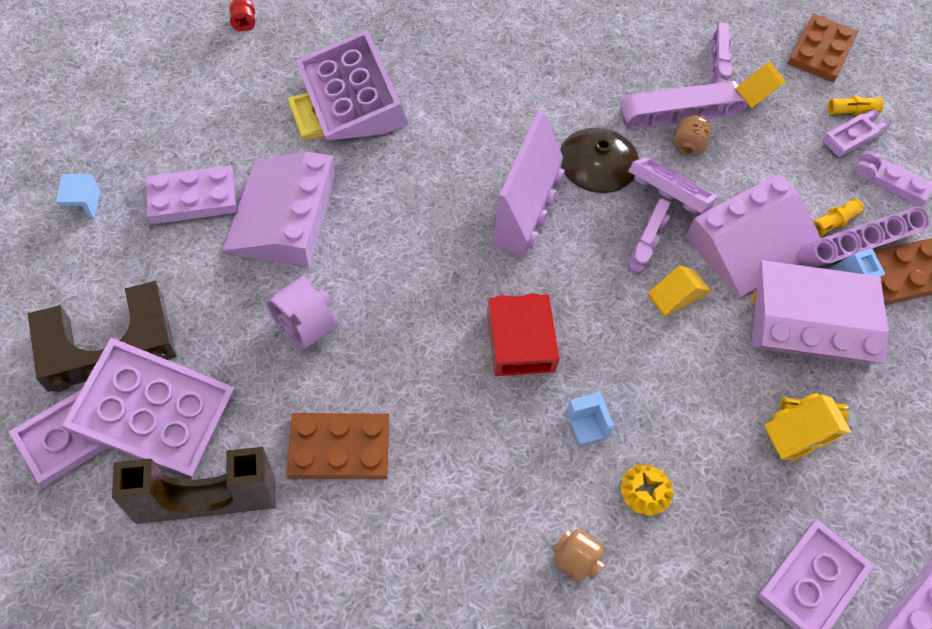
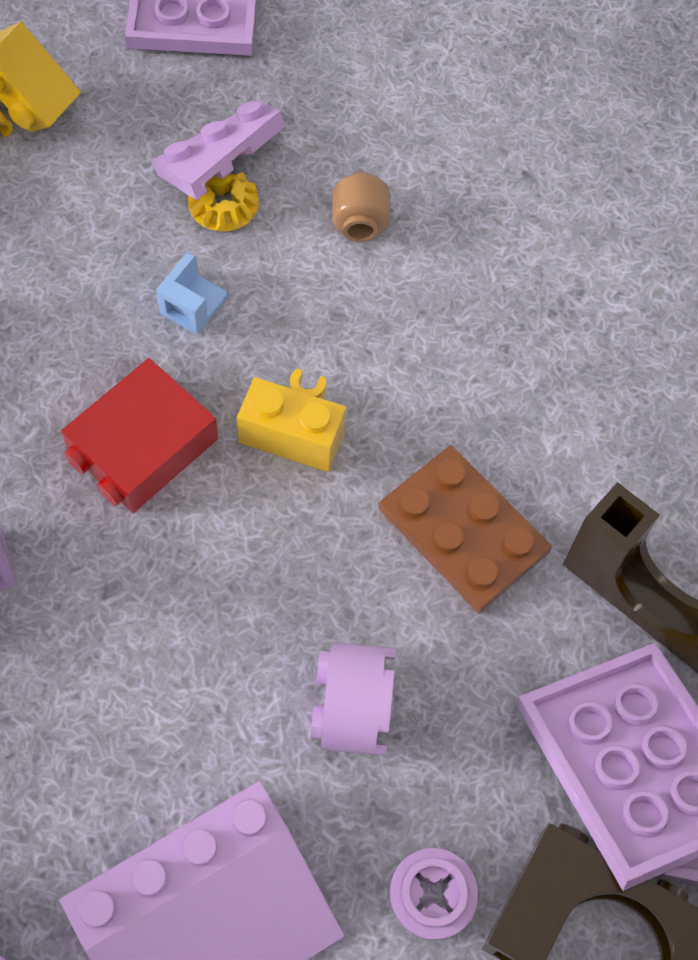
camera: 130 degrees left, 5 degrees up
(191, 283) = (460, 895): none -> lavender gear
(467, 404) = (292, 421): none -> yellow brick
(686, 502) = (209, 153): none -> lavender wing

